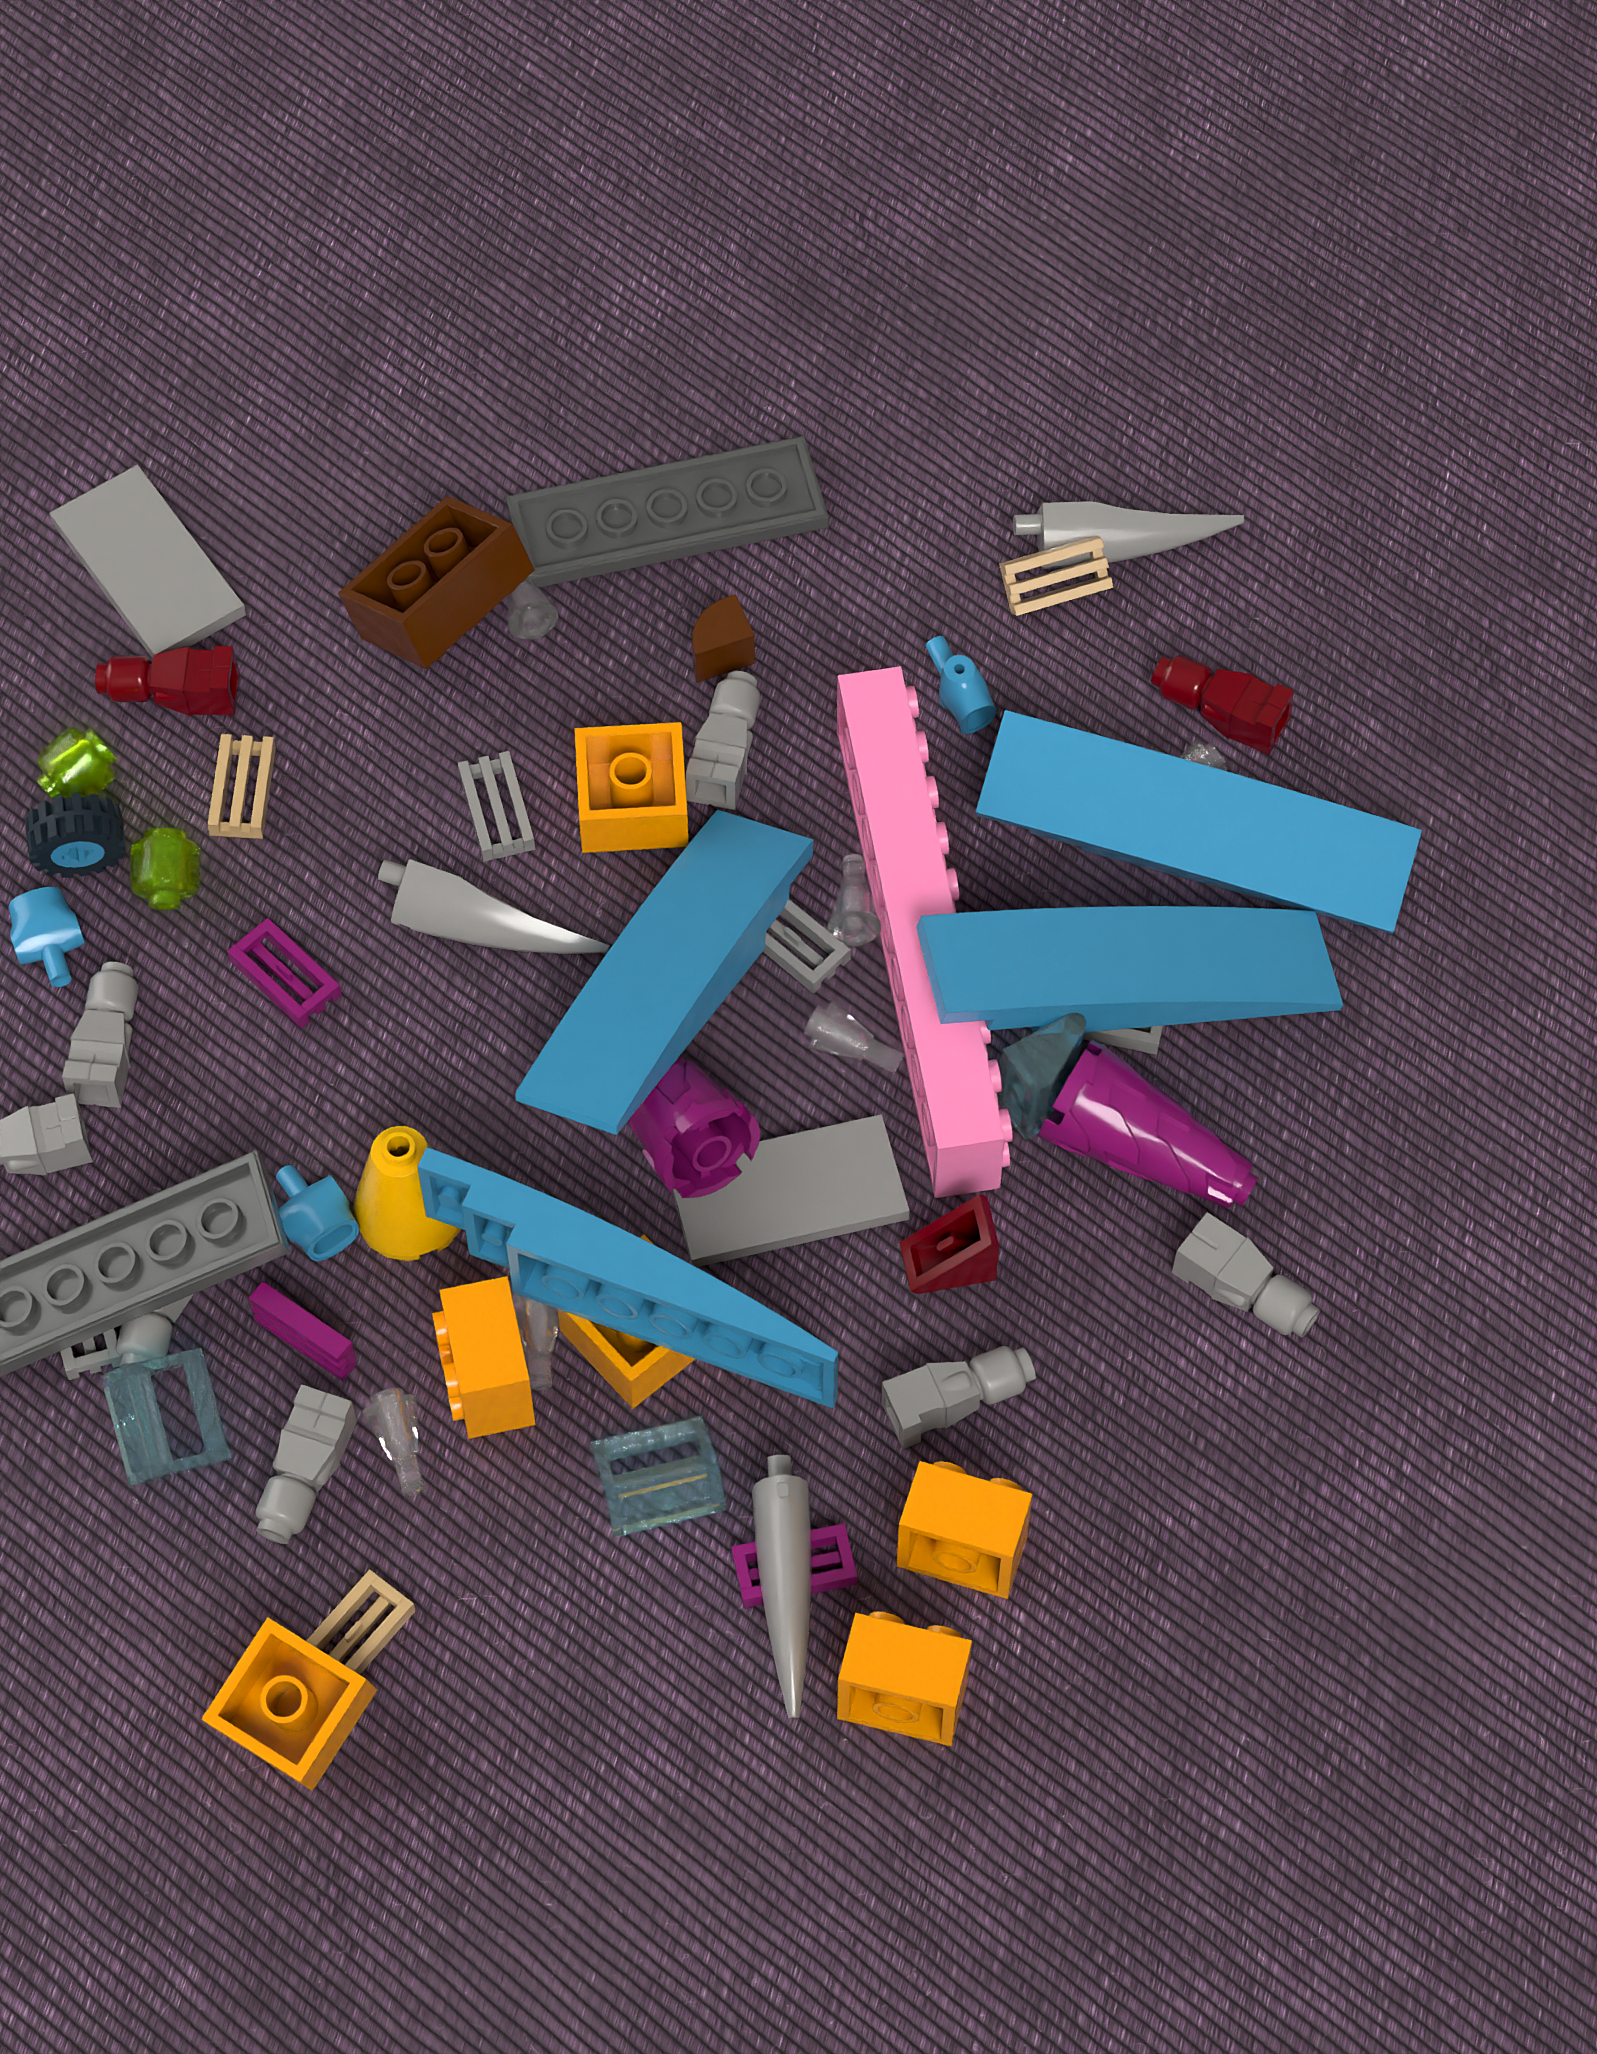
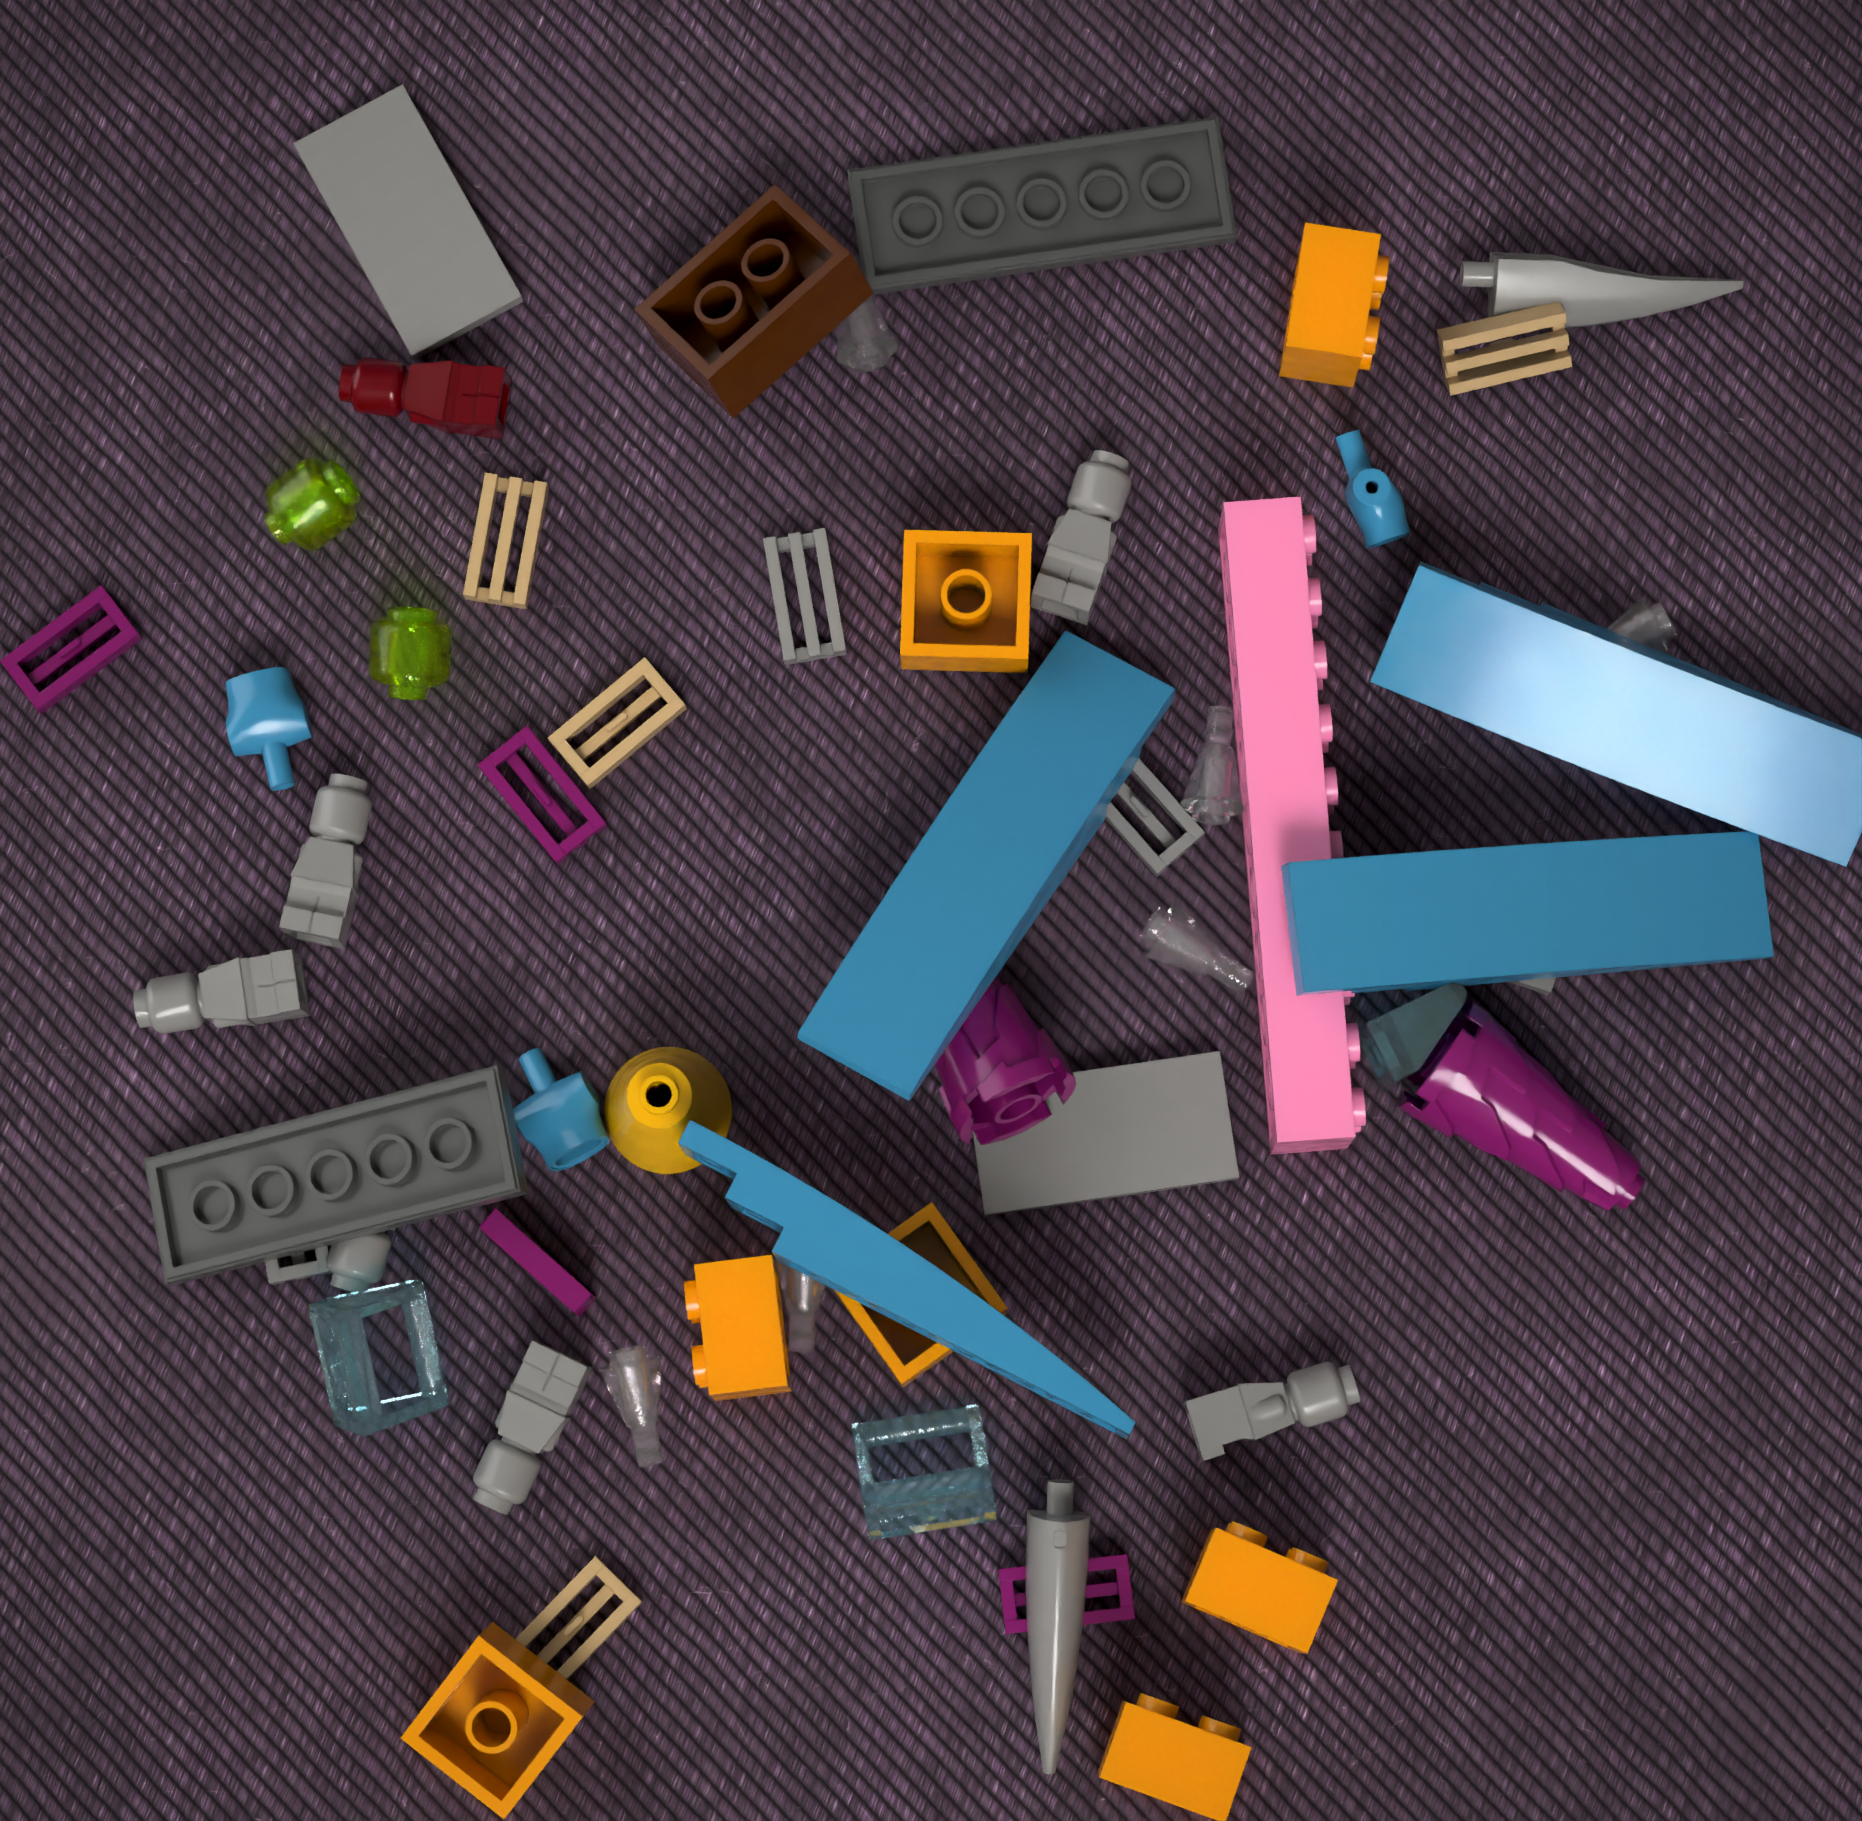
camera: 10 degrees right, 20 degrees up
(75, 835) = (306, 606): black wheel -> none
(313, 944) = (598, 706): none -> tan tile
(459, 911) = (755, 737): light grey piece -> none
(722, 640) = (1091, 401): reddish brown brick -> none
(912, 547) = (1330, 304): none -> light orange brick
(953, 1249) = (1280, 1234): dark red slope -> none
(1229, 700) = (1692, 542): dark red piece -> none
(1240, 1276) = (1612, 1302): light grey piece -> none

